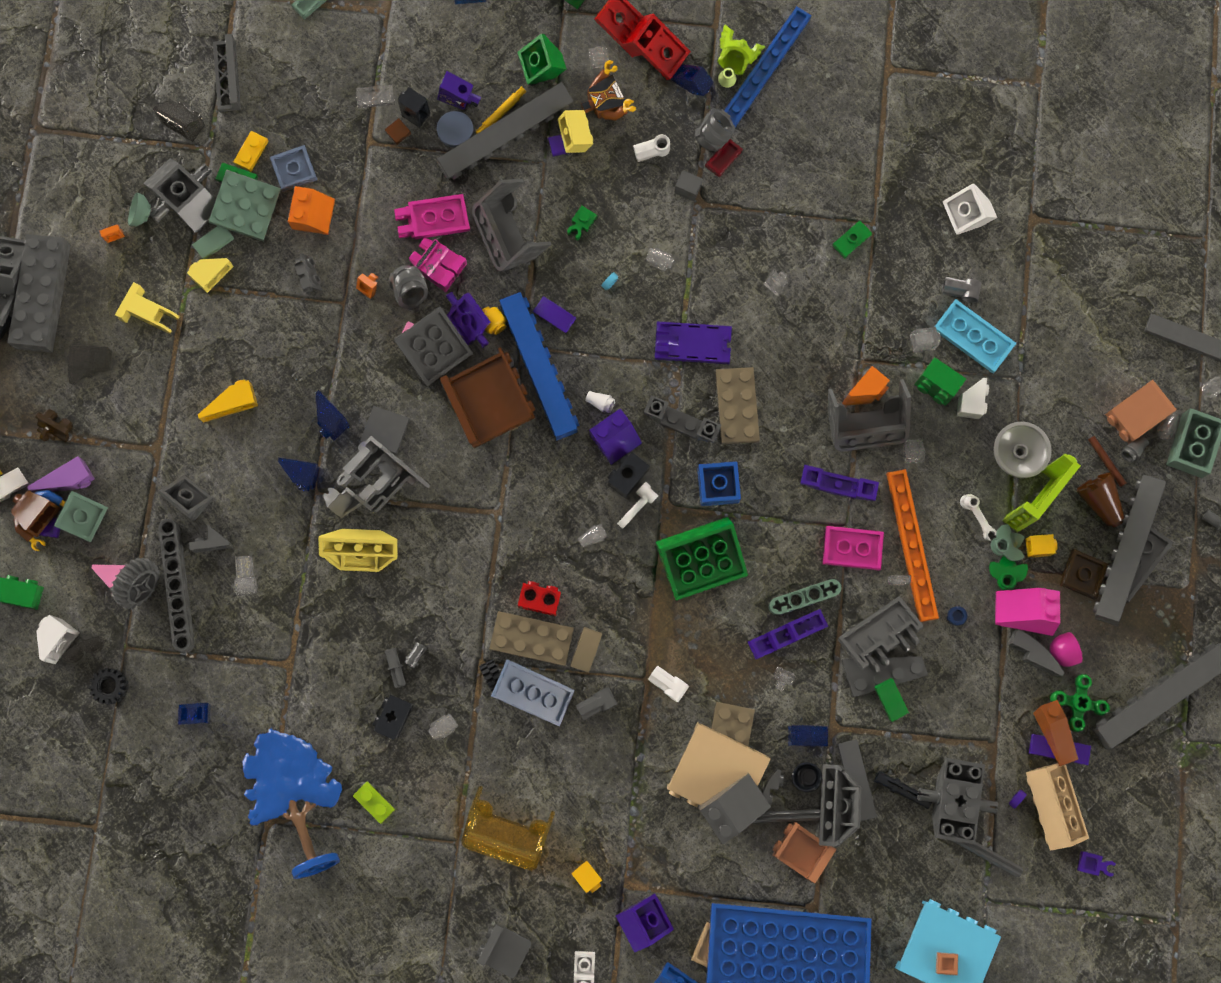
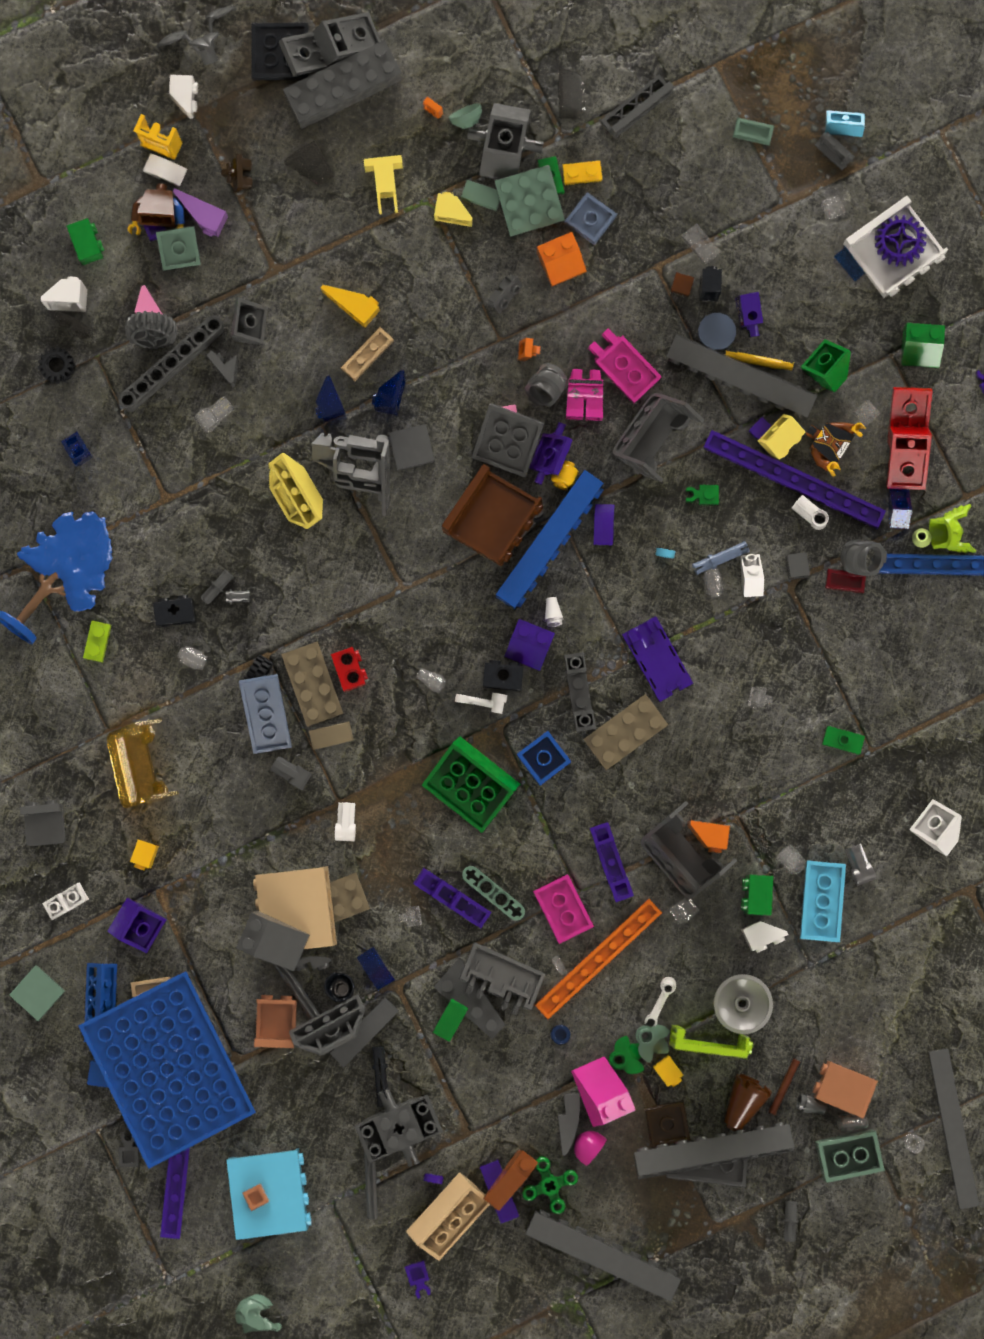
camera: 65 degrees right, 5 degrees up
(281, 417) = (367, 354): none -> tan tile
(615, 145) = (794, 479): none -> dark purple plate
(642, 241) = (713, 561): none -> sand blue pin
(673, 224) = (752, 575): none -> white slope

